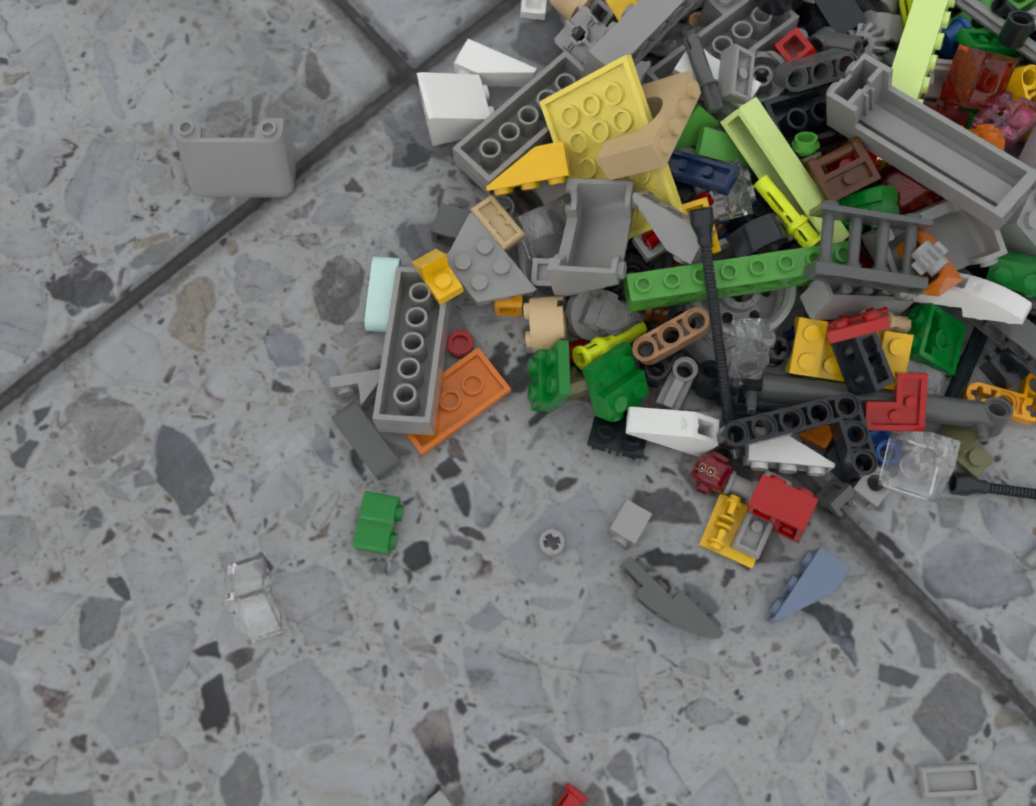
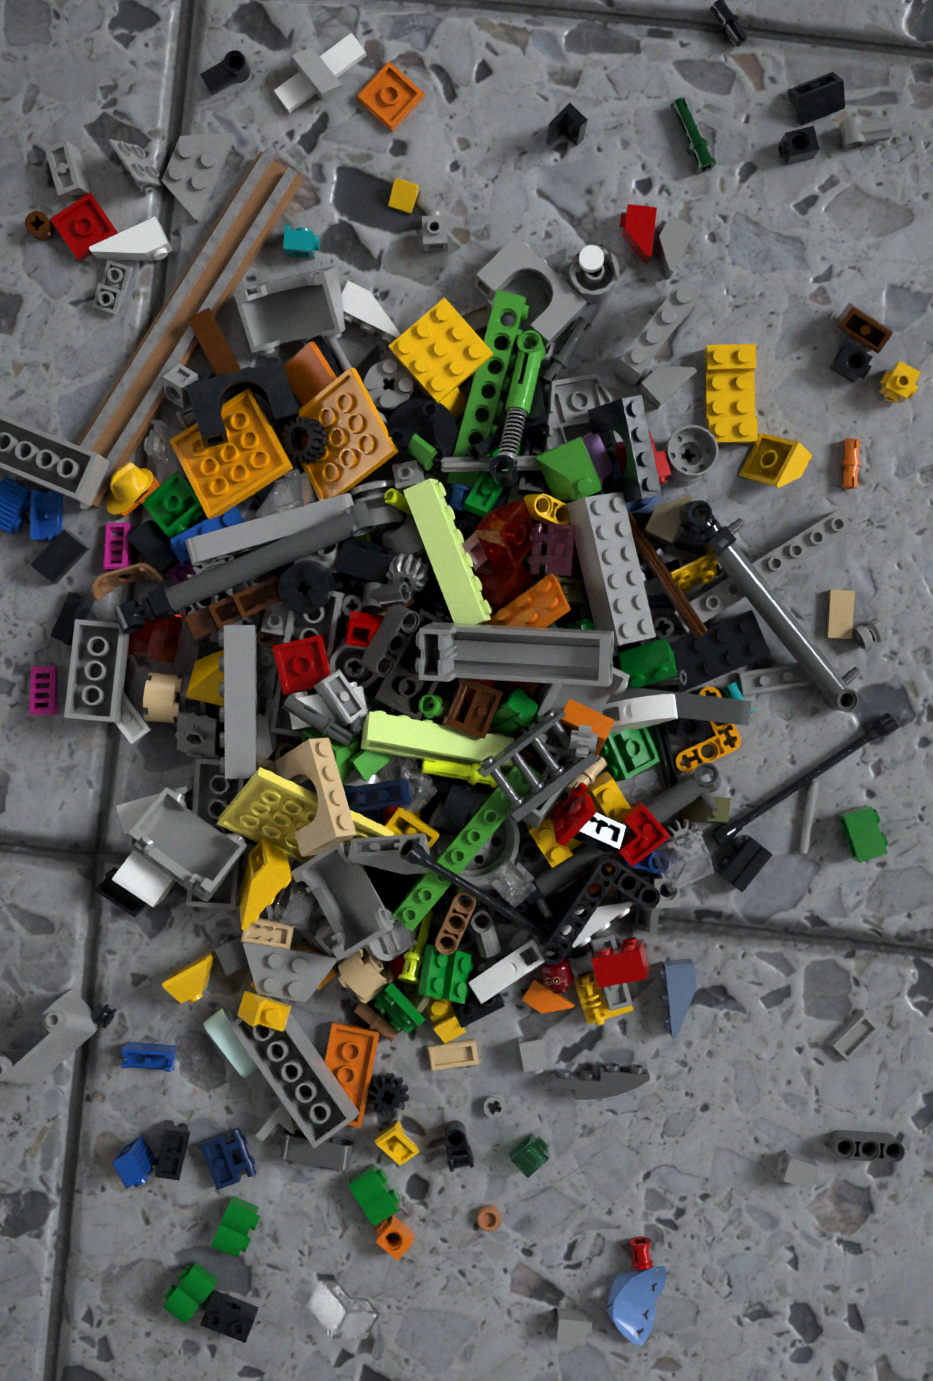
camera: 40 degrees left, 15 degrees up
(143, 464) = (190, 1292): none -> green brick
(154, 514) = (229, 1316): none -> black brick
(210, 311) = (134, 1163): none -> blue brick
(235, 443) = (234, 1227): none -> green brick
(247, 332) = (172, 1151): none -> black hinge
(277, 380) = (221, 1161): none -> dark blue plate
(302, 187) = (106, 1016): none -> black bush
(303, 247) = (149, 1056): none -> blue hinge
(368, 585) = (398, 1246): none -> orange brick
(400, 210) = (190, 980): none -> yellow slope
(410, 111) = (120, 895): none -> black hinge
(439, 494) = (396, 1143): none -> yellow slope
(456, 640) = (488, 1217): none -> nougat tile
(460, 344) = (317, 1027): red tile -> none
(466, 439) = (378, 1091): none -> black gear
(486, 549) = (457, 1150): none -> black piece
(495, 93) = (185, 845): none -> light grey windscreen
(516, 379) = (376, 1021): none -> medium nougat pin
(548, 612) = (530, 1154): none -> clear green brick
(555, 467) = (453, 1054): none -> tan tile
(576, 428) = (444, 1020): none -> yellow slope
(681, 489) = (545, 1000): none -> orange slope
(721, 30) = (301, 664): none -> red plate
(965, 523) = (743, 862): none -> black brick

